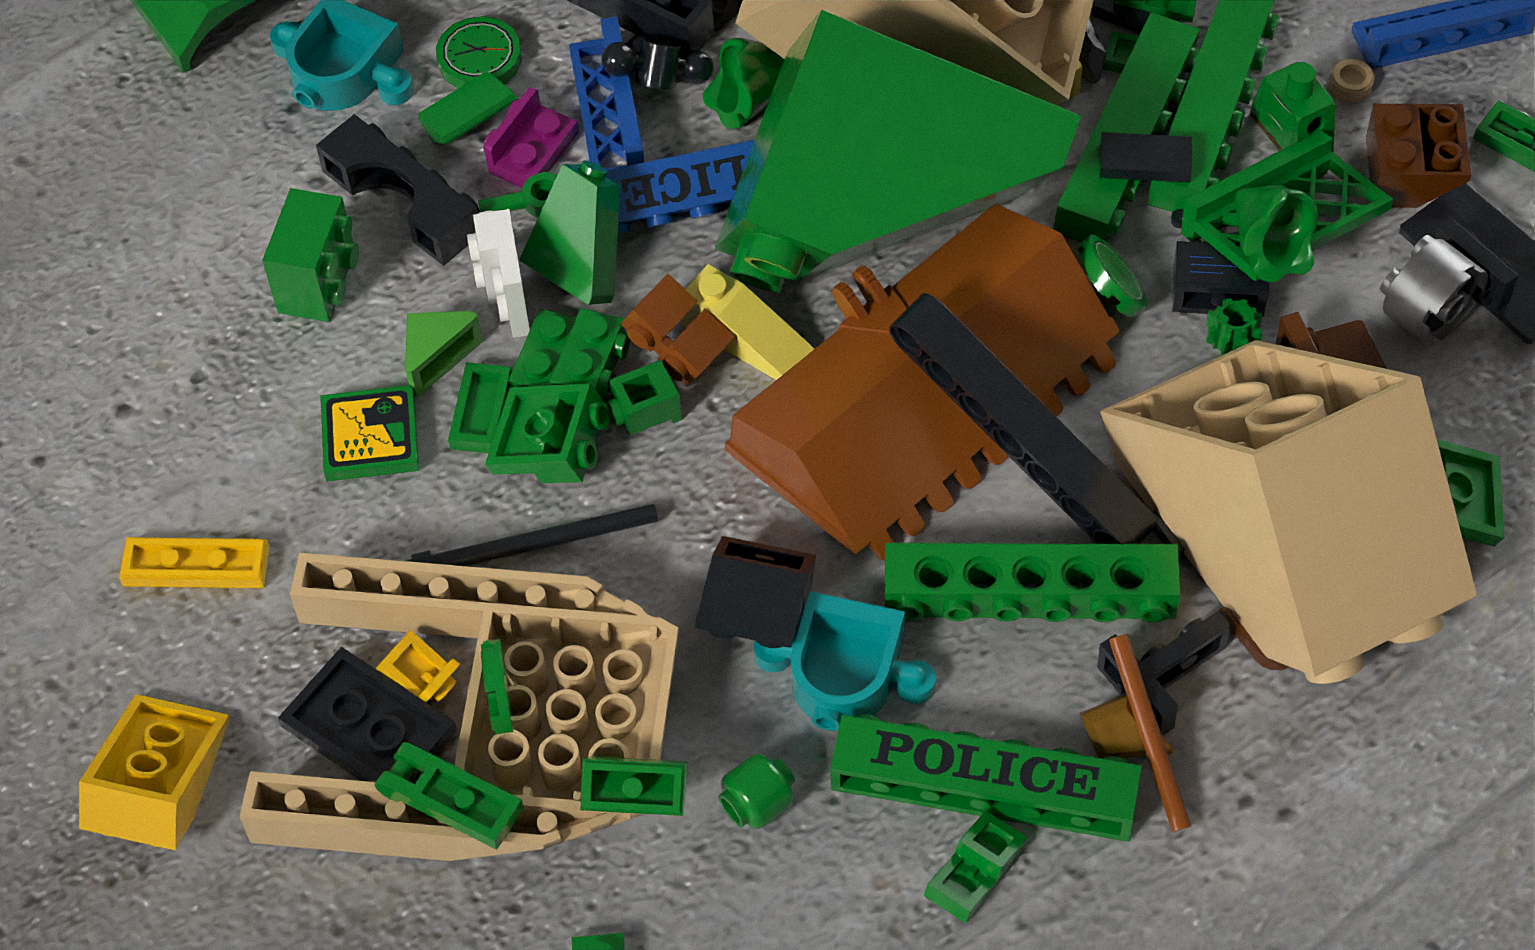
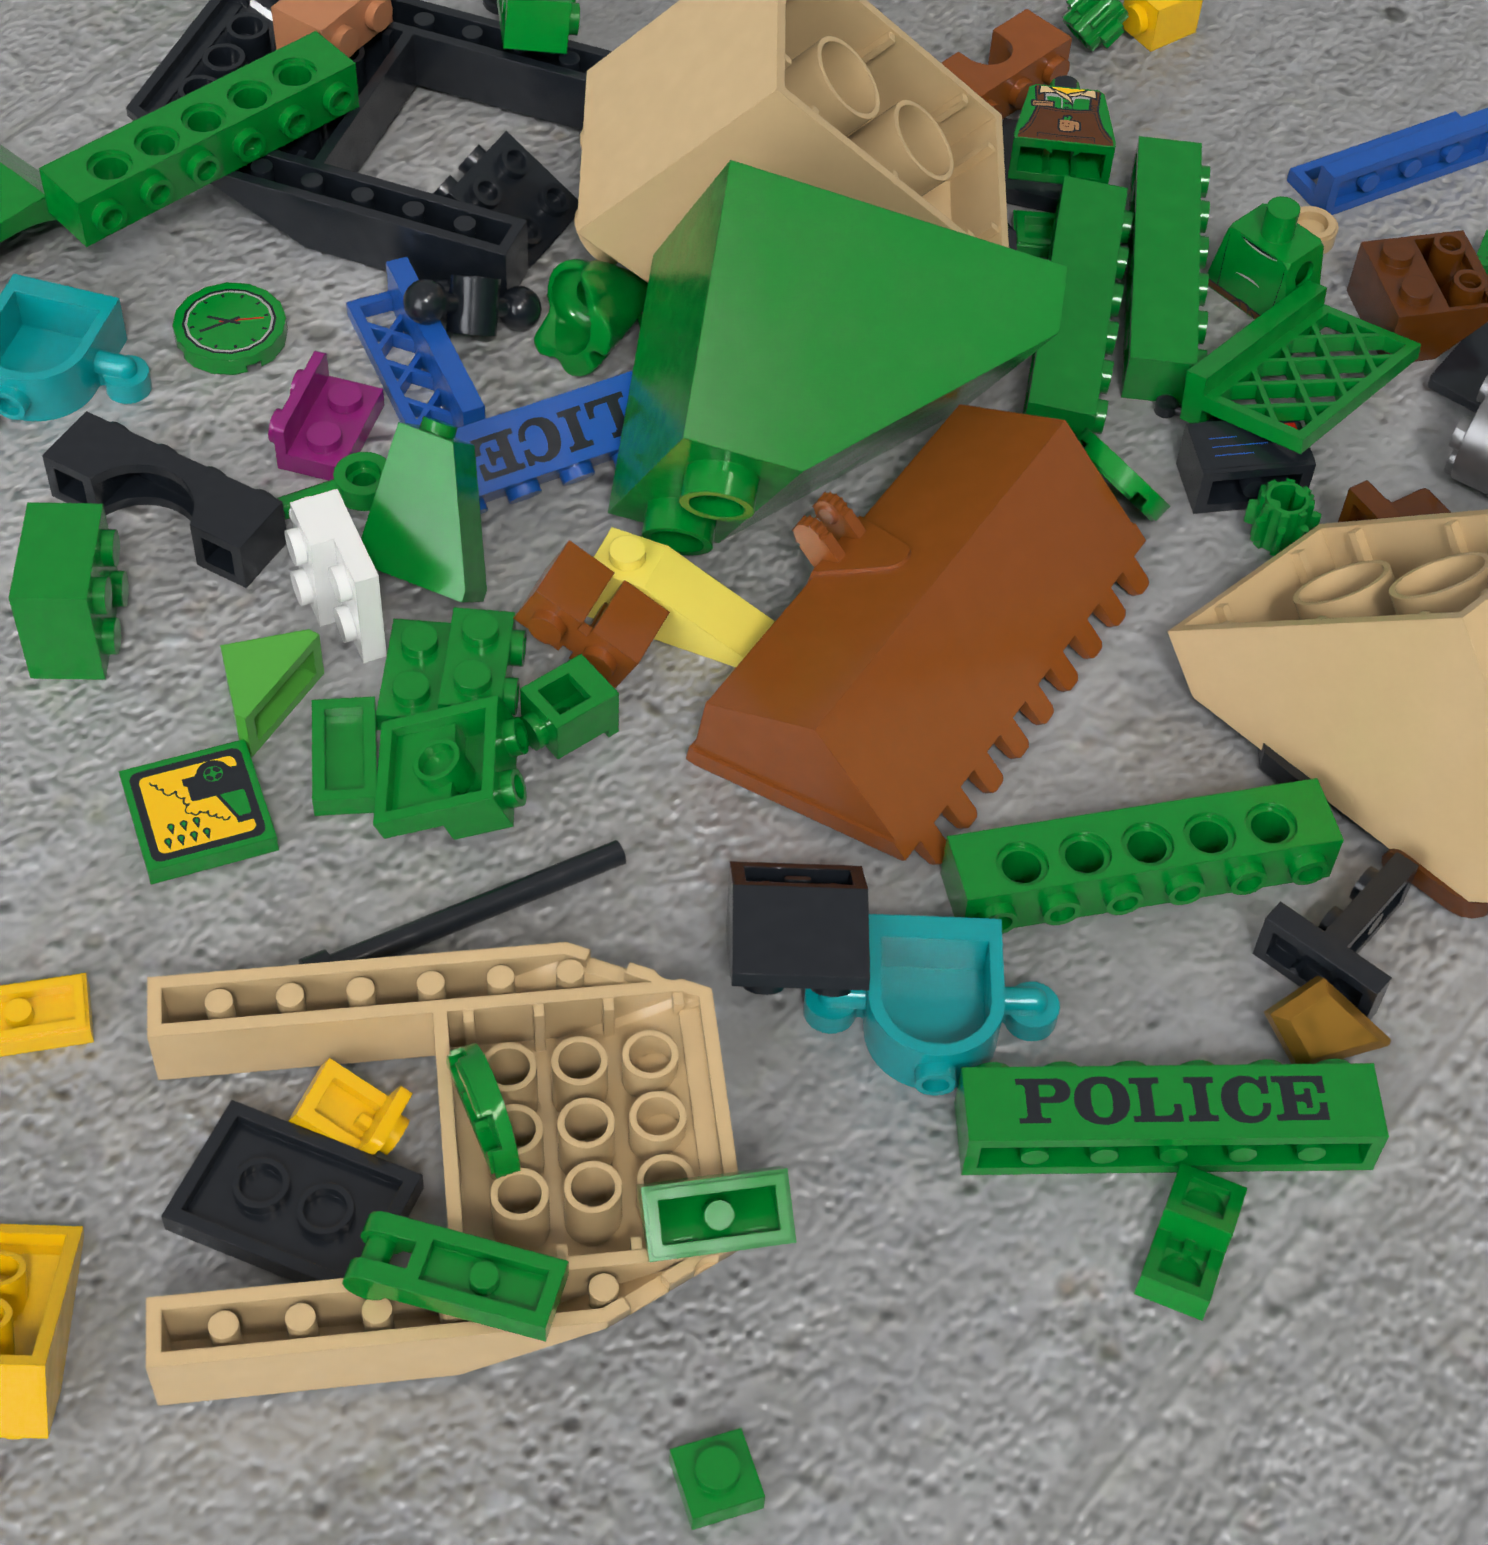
camera: 20 degrees left, 5 degrees down
(465, 108) = (231, 391): green slope -> none
(757, 791) = (871, 1193): green head -> none
(1020, 424) = (1081, 655): black beam -> none
(1145, 157) = (1119, 332): black tile -> none
(1150, 733) = (1367, 1021): dark orange bar -> none
(1276, 230) = (1313, 383): green hat -> none

